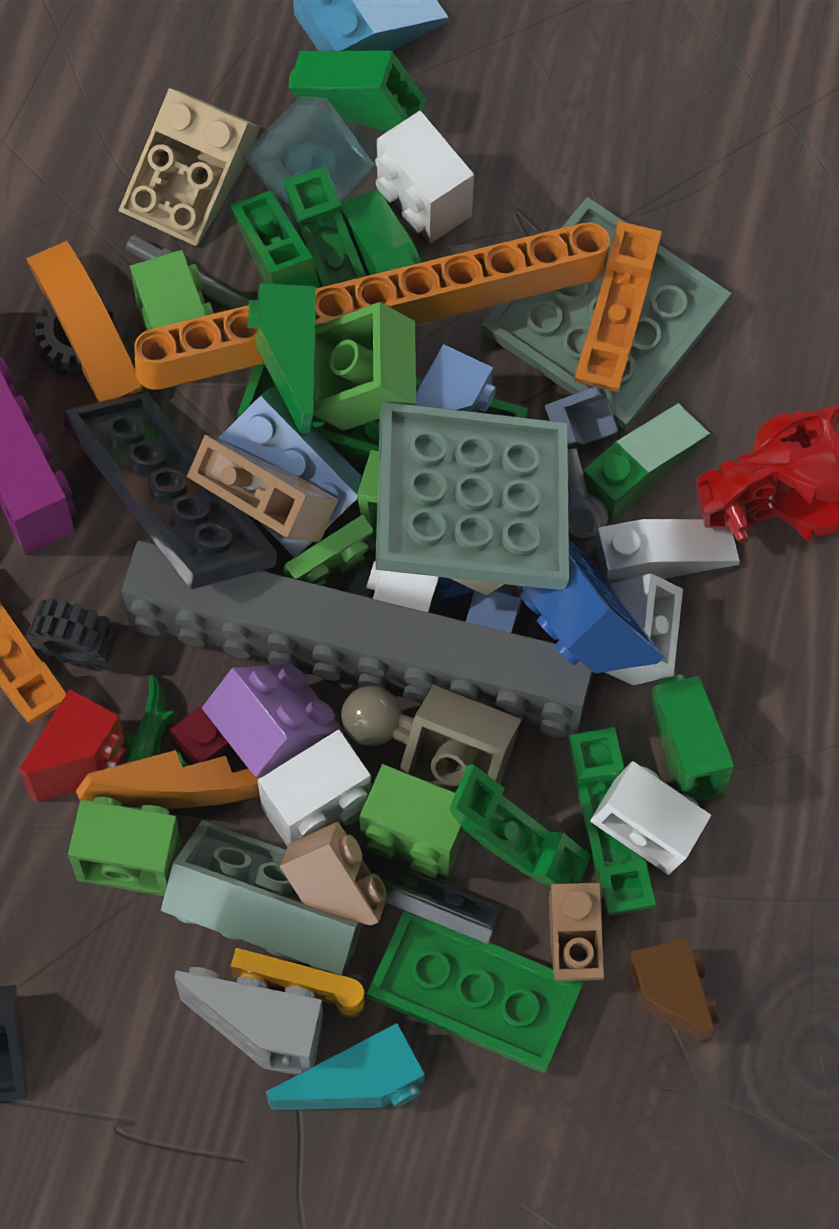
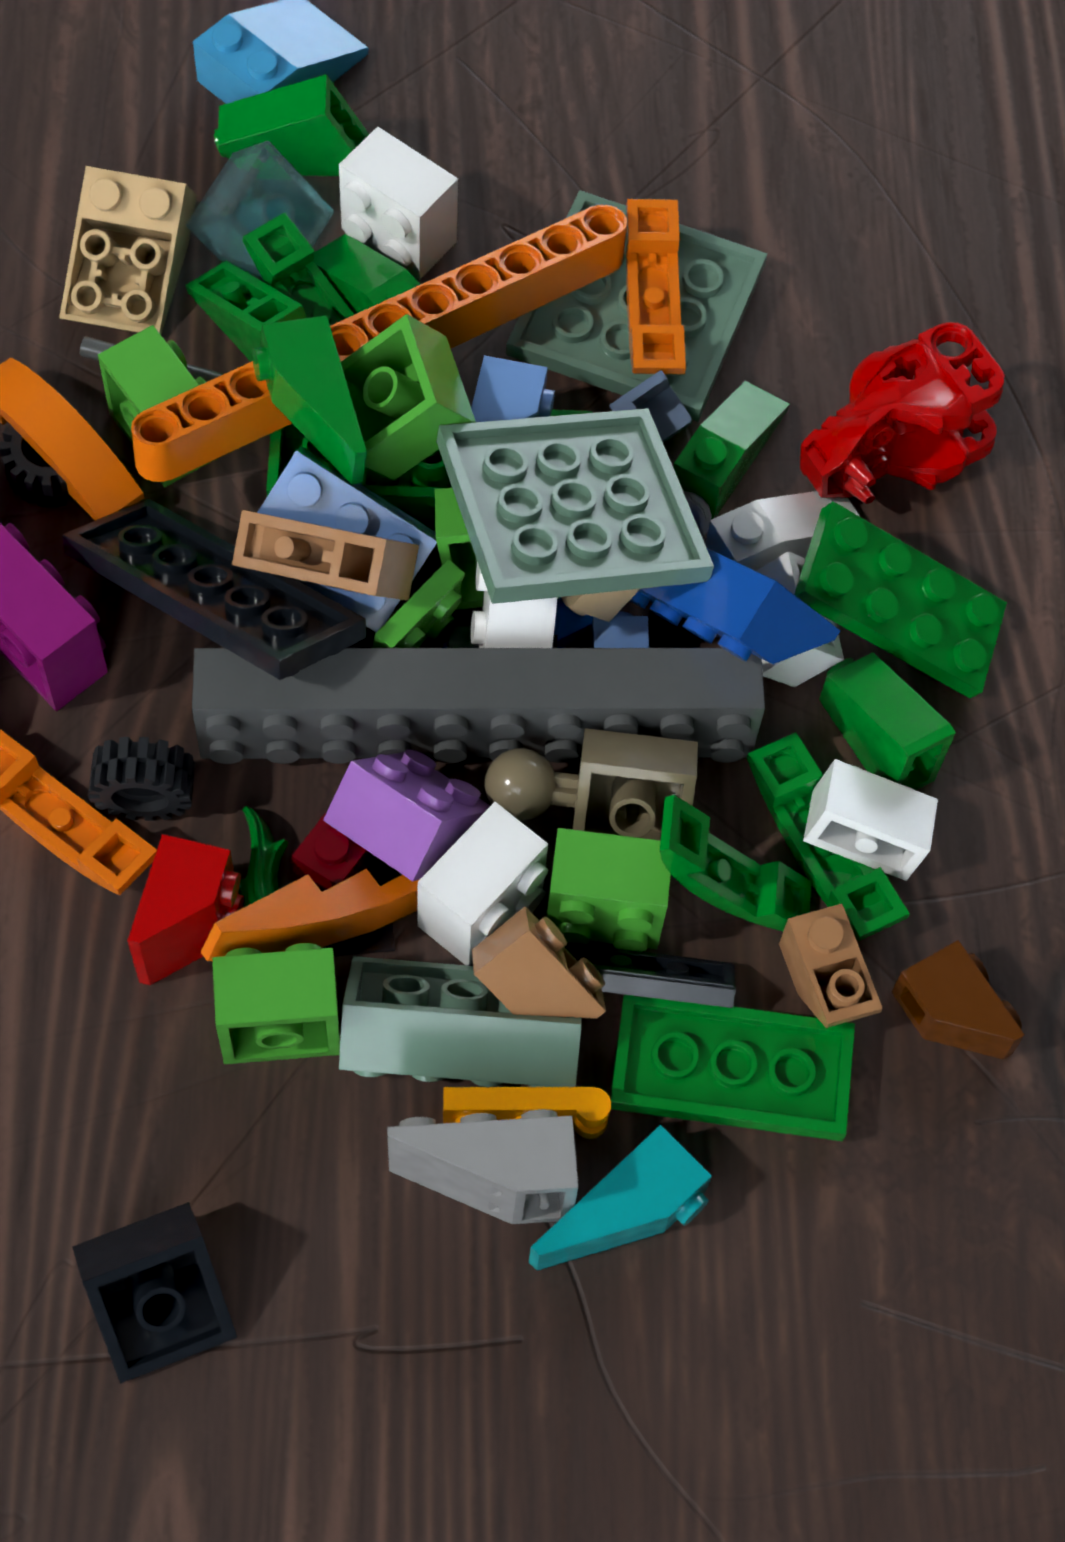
camera: 20 degrees left, 5 degrees down
(738, 636) = (900, 600): none -> green plate

